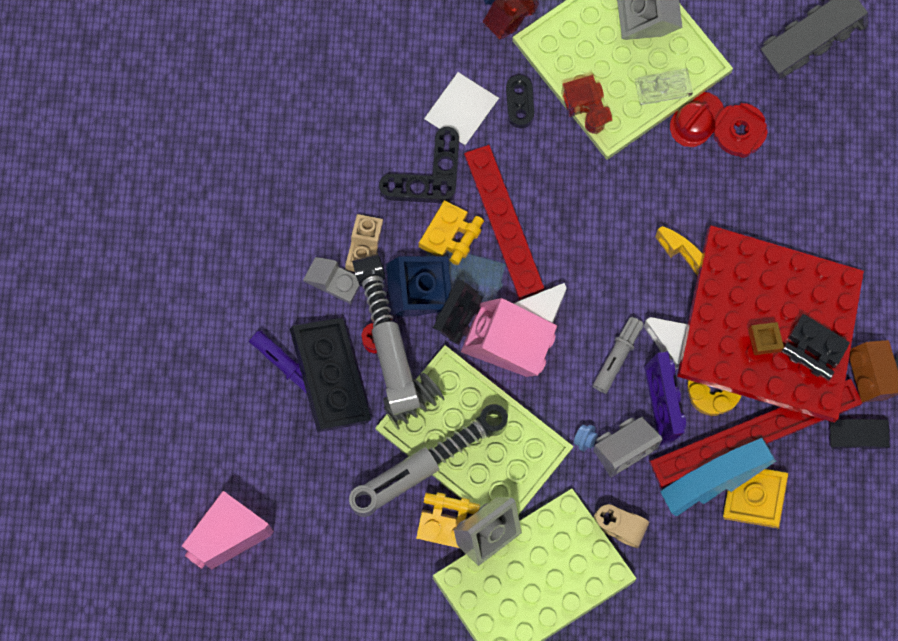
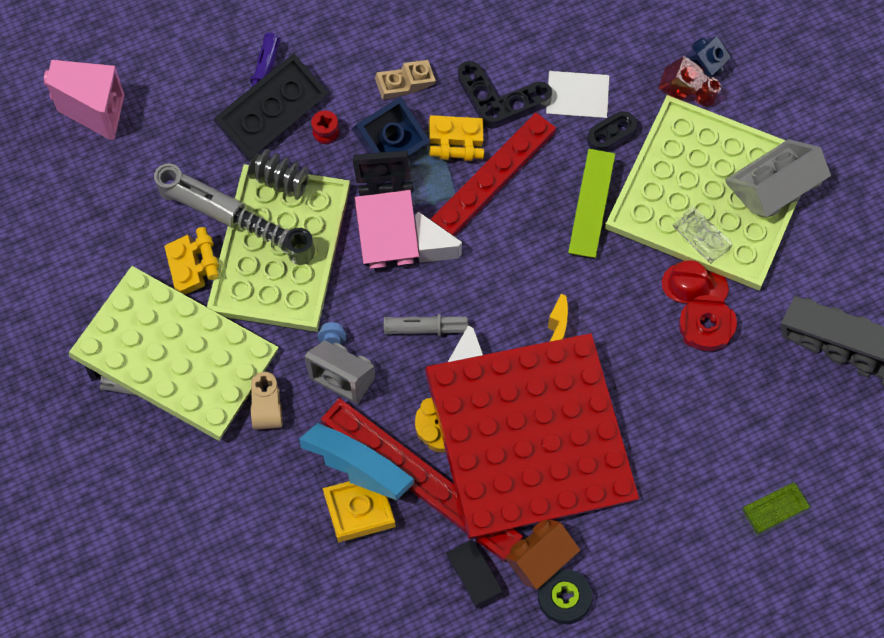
camera: 60 degrees right, 10 degrees down
(332, 279) = (359, 74): light grey slope -> none
(387, 337) = (276, 149): light grey piece -> none
(488, 529) = (191, 285): light grey slope -> none
(581, 156) = (591, 203): none -> lime slope
(585, 97) = (643, 174): clear red brick -> none
(665, 398) = (401, 377): dark purple plate -> none
(766, 338) = (505, 425): pearl gold plate -> none
(818, 341) = (535, 478): black plate -> none

